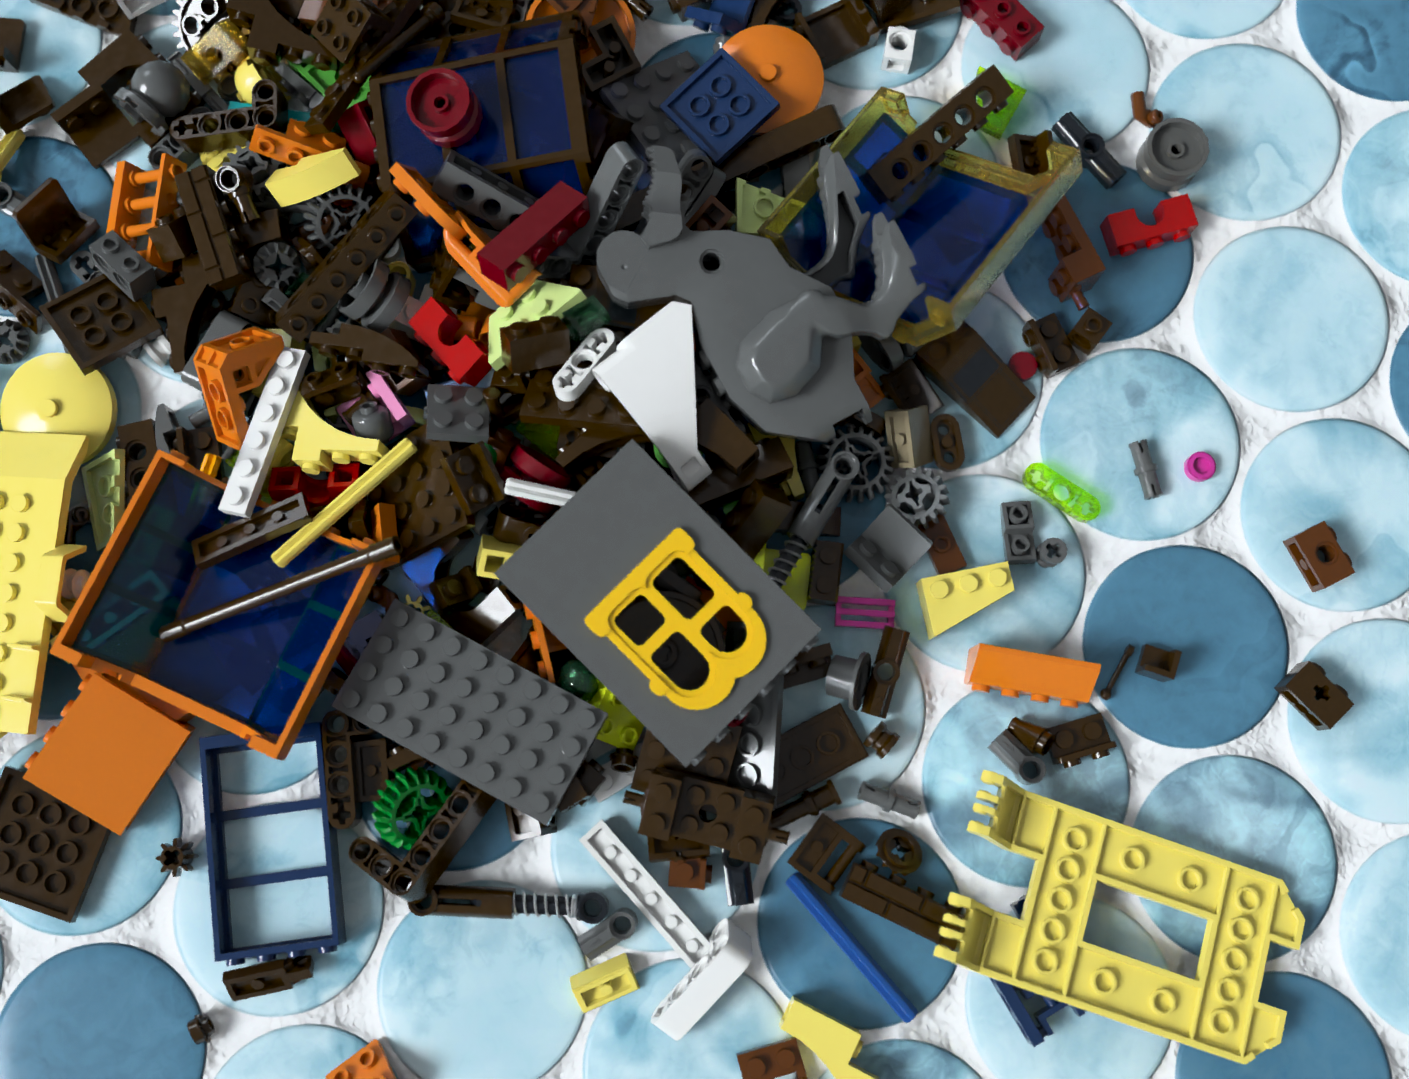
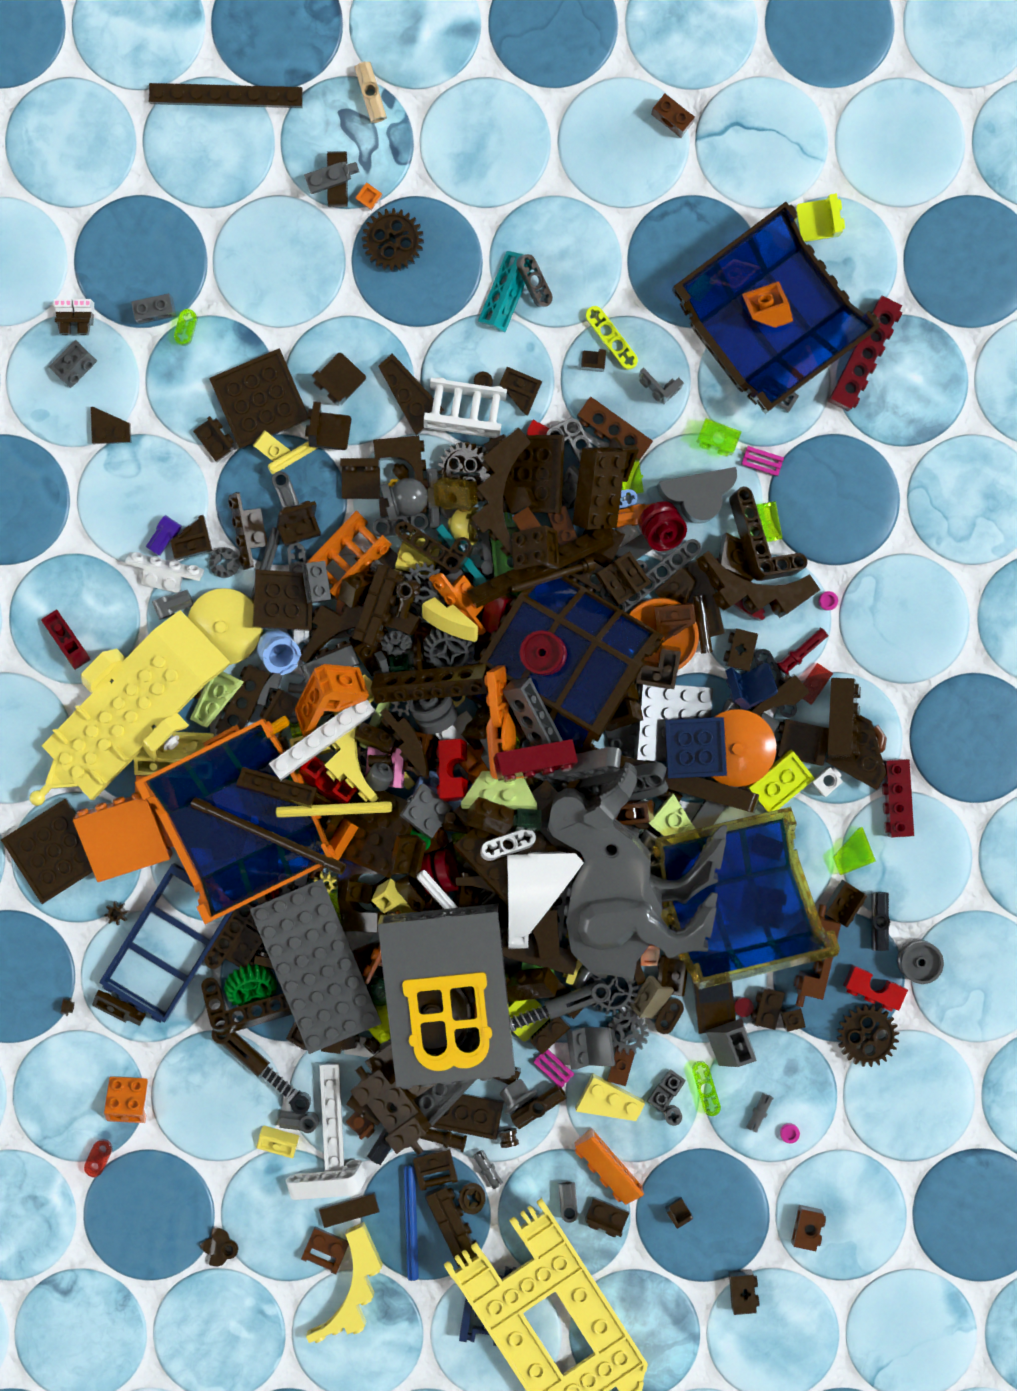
camera: 45 degrees right, 10 degrees up
(140, 380) = (278, 652): none -> light blue tile
(761, 995) = (349, 1210): none -> dark brown tile
(849, 79) = (782, 782): none -> neon yellow plate
(988, 86) = (788, 851): dark brown brick -> none
(1032, 736) = (585, 1199): dark brown cone -> none
(1046, 414) = (731, 1044): none -> dark grey slope
(1106, 692) = (640, 1205): dark brown hinge -> none
(1142, 113) = (928, 923): reddish brown arm -> none
(1213, 285) = (881, 1046): none -> dark brown gear

